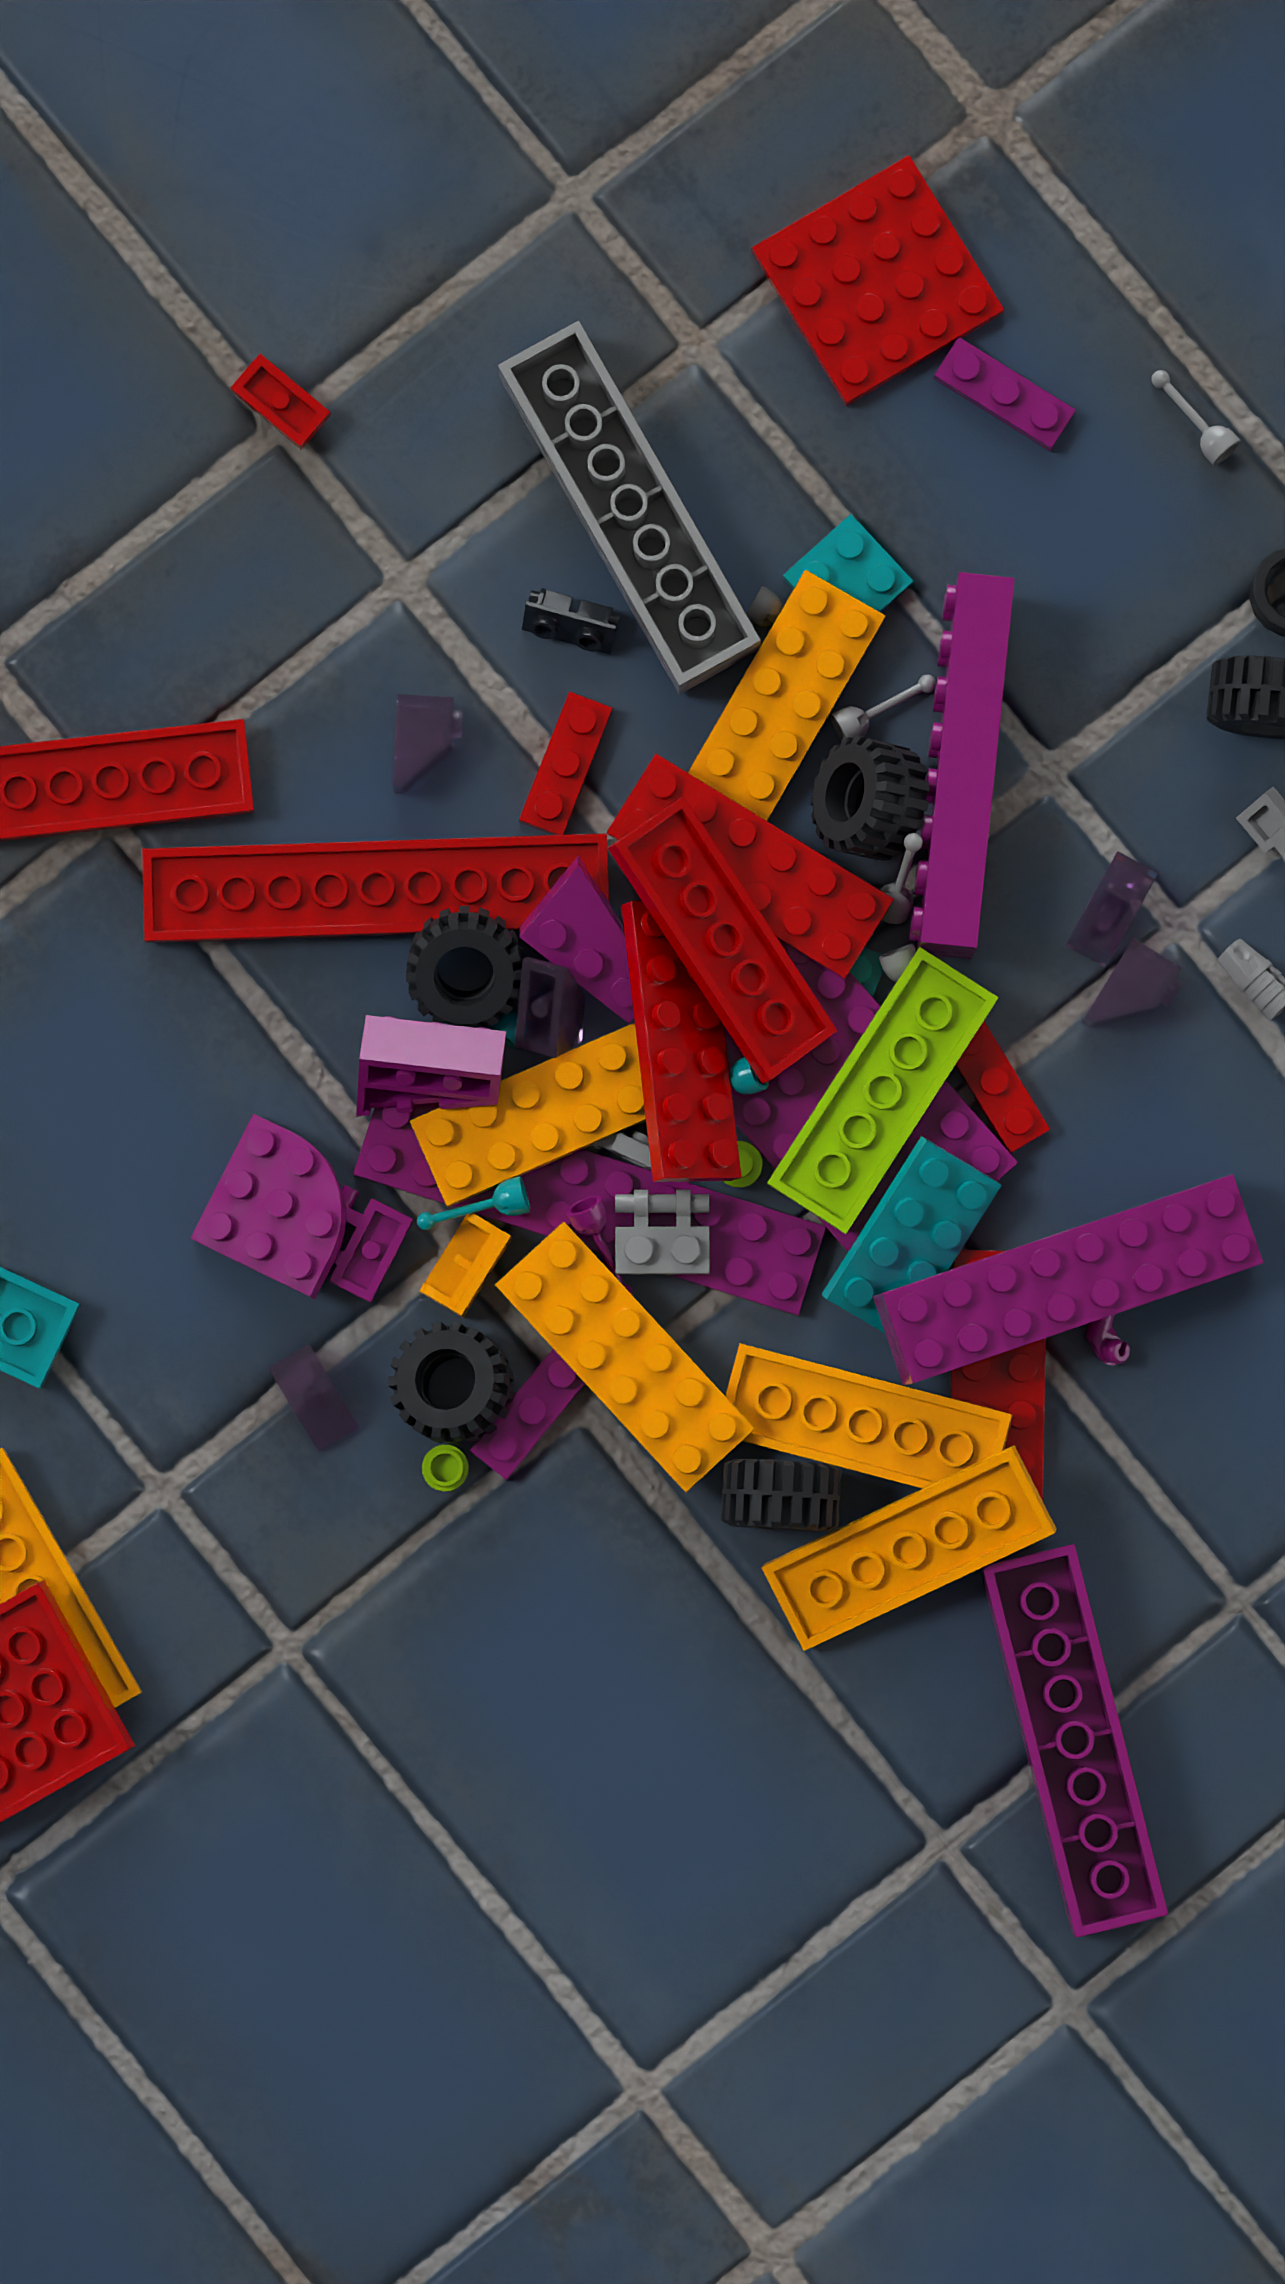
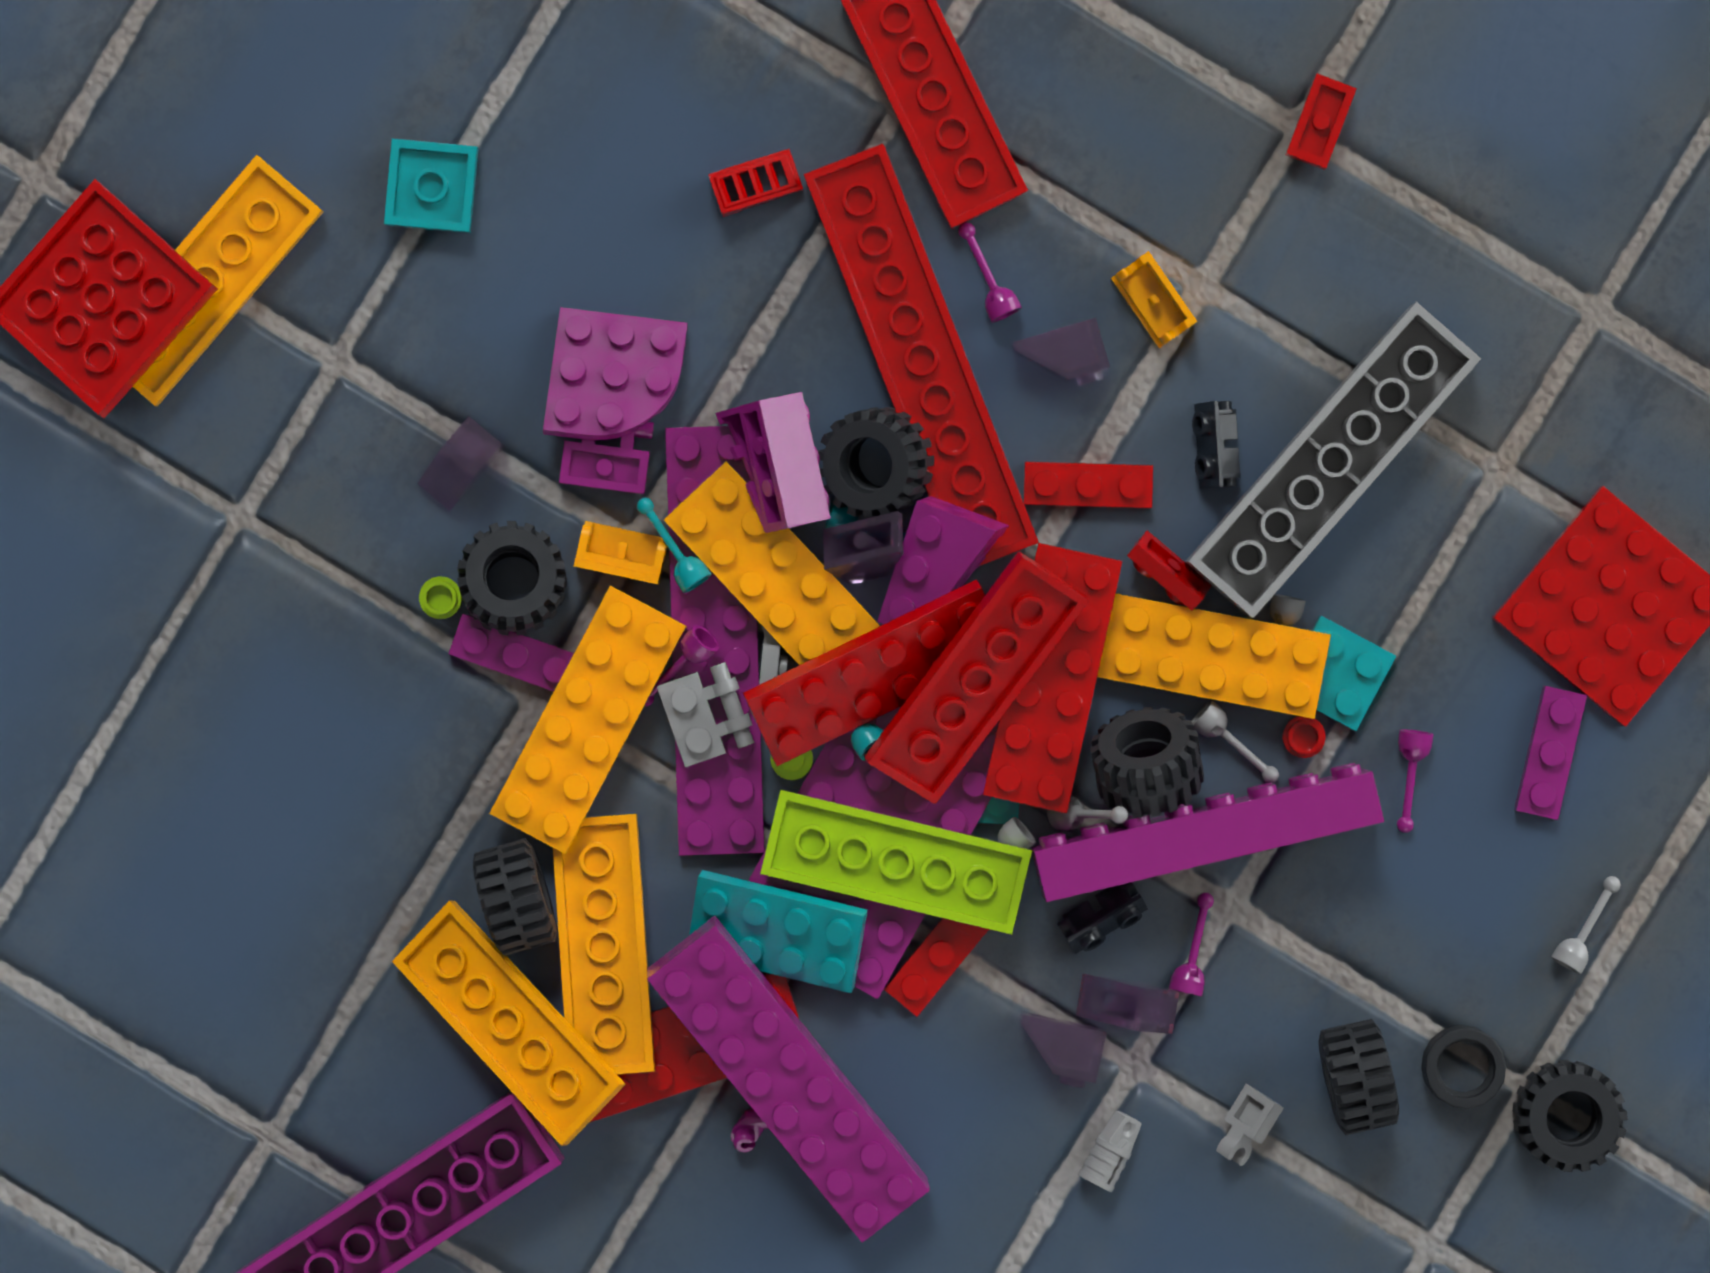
camera: 70 degrees right, 5 degrees up
(134, 1032) = (727, 207): none -> red slope
(346, 787) = (999, 301): none -> magenta hinge
(400, 631) = (1153, 299): none -> light orange hinge
(695, 705) = (1169, 570): none -> red plate
(900, 636) = (1304, 737): none -> red plate
(951, 527) = (1413, 746): none -> magenta hinge
(1021, 919) = (1092, 927): none -> black hinge
(1105, 838) = (1189, 977): none -> magenta hinge

